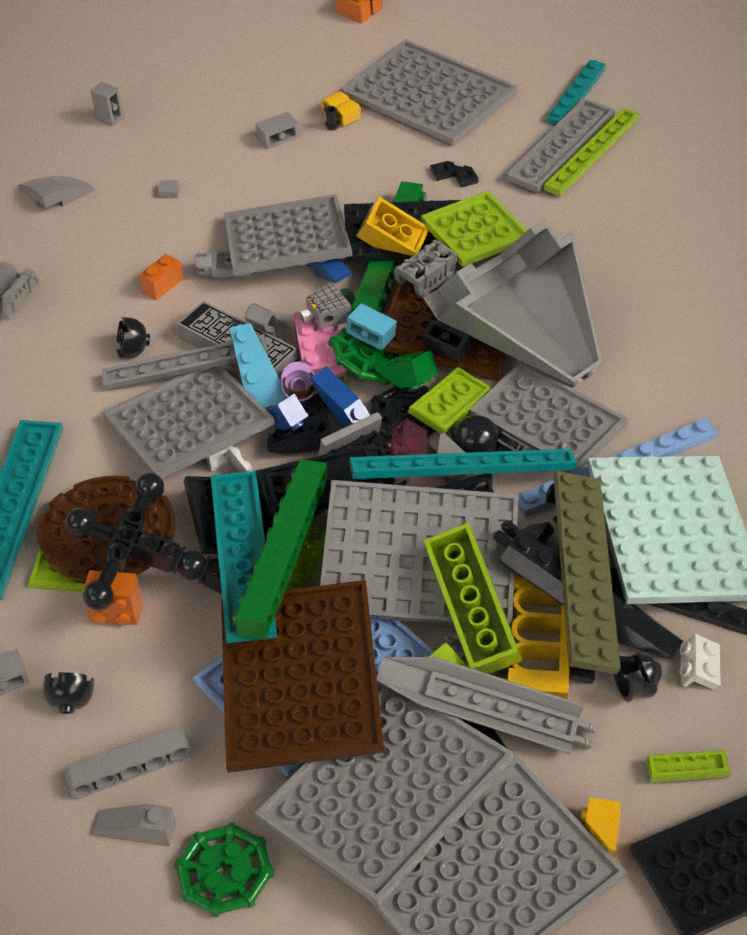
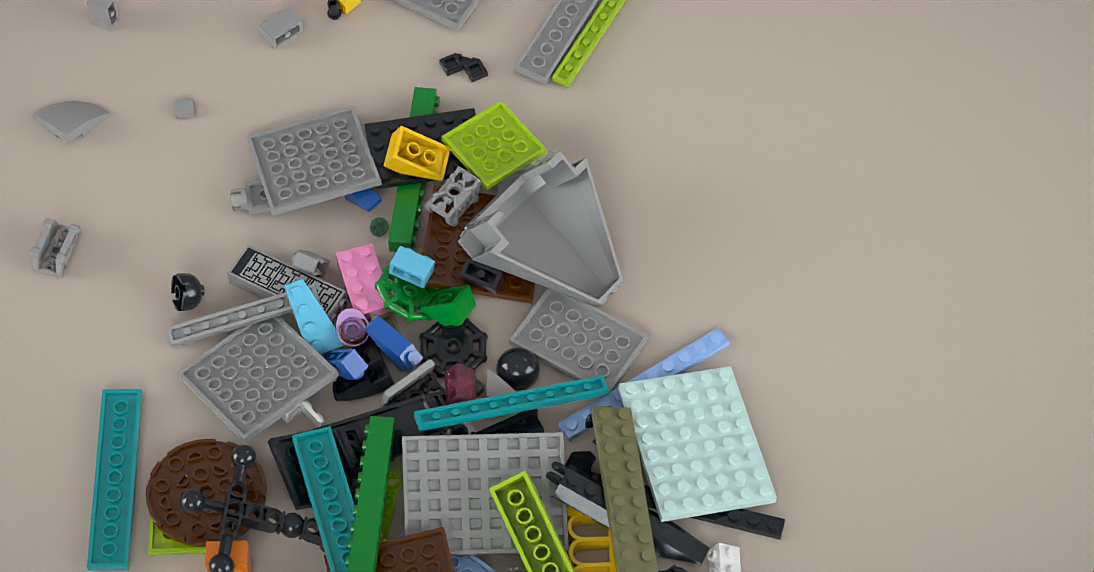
camera: 10 degrees left, 10 degrees up
(161, 276) = (200, 217): orange brick -> none
(326, 307) = (367, 249): light grey torso -> none
(449, 400) = (491, 332): lime tile -> none
(513, 443) = (555, 373): dark grey piece -> none

